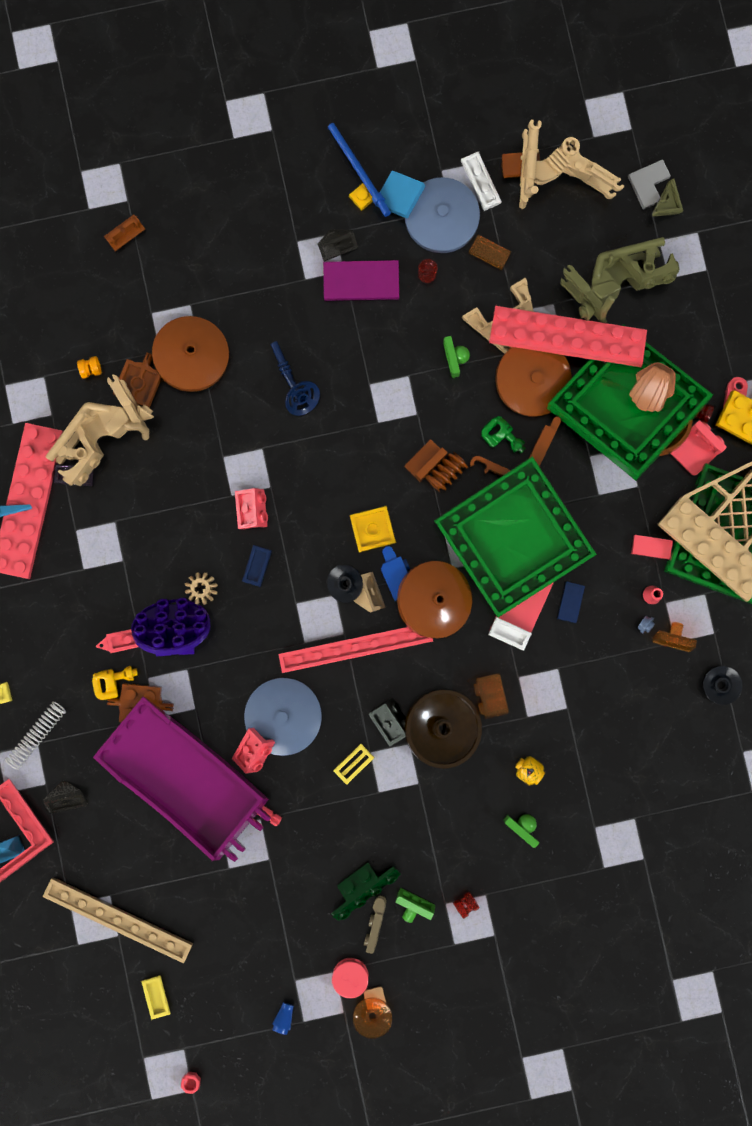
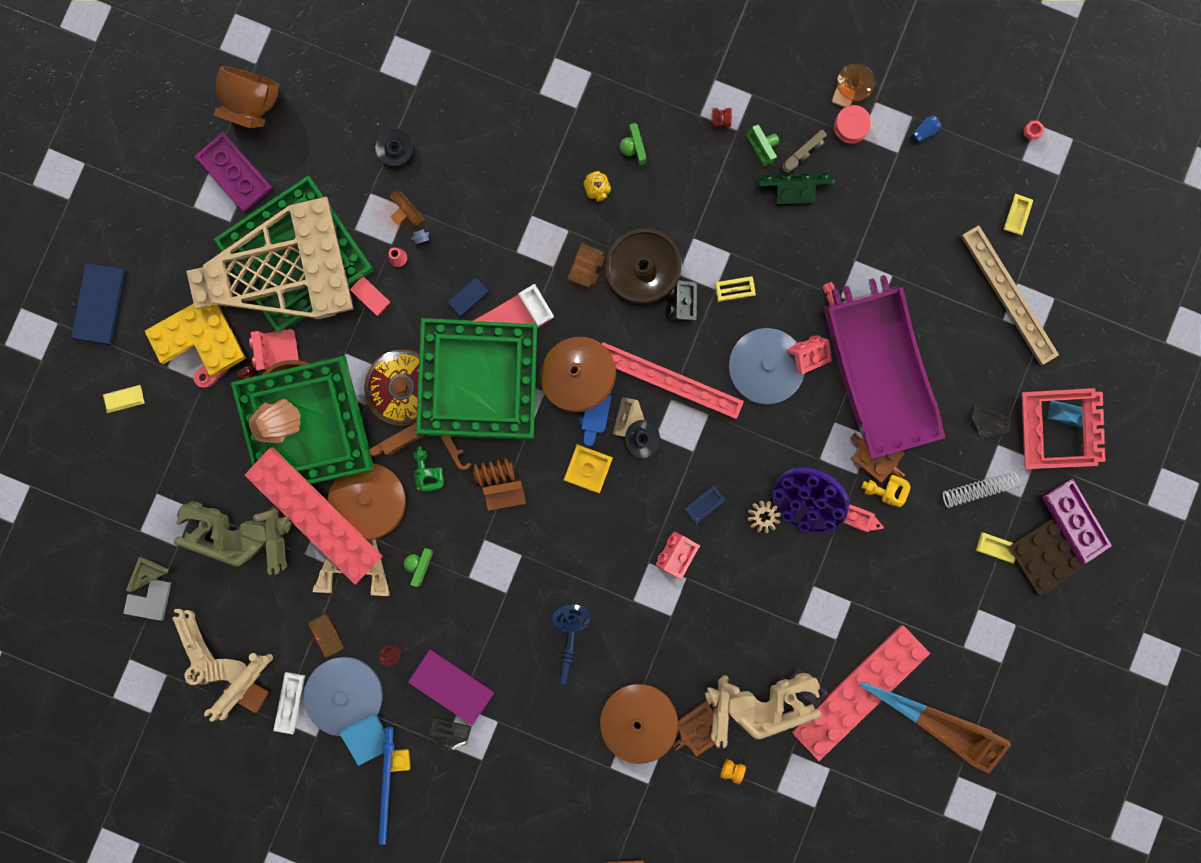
camera: 150 degrees left, 0 degrees up
(579, 484) = (393, 387): none -> dish

